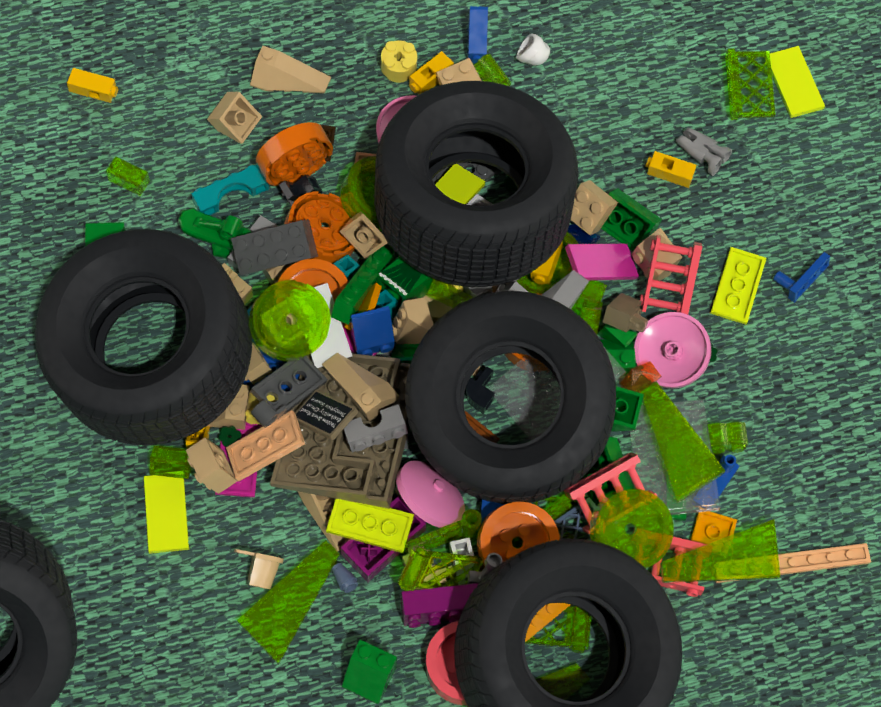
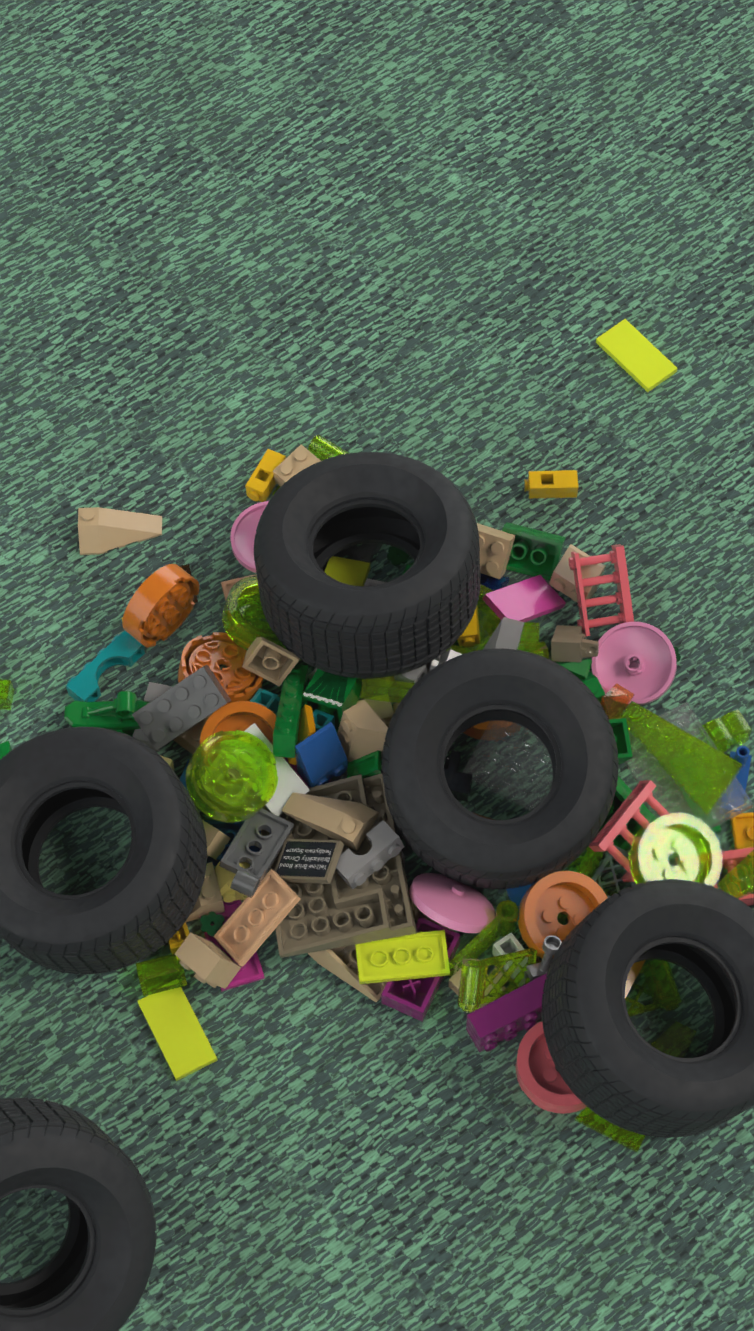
camera: 15 degrees left, 5 degrees down
(234, 117) = (78, 591): tan slope -> none
(262, 569) = (305, 1049): tan container -> none
(283, 609) = (345, 1085): clear neon green wing -> none
(304, 185) = (174, 645): black brick -> none
(345, 579) = (396, 1026): sand blue cone -> none
(369, 671) = (467, 1113): green slope -> none
(398, 61) = (227, 474): light yellow brick -> none
(477, 33) = (296, 417): blue slope -> none
(533, 50) = (360, 416): white piece -> none
(701, 149) = (573, 452): light grey piece -> none
(734, 80) = (577, 375): clear neon green fence -> none
(738, 285) = (670, 576): neon yellow tile -> none
(797, 288) = (731, 556): blue piece -> none

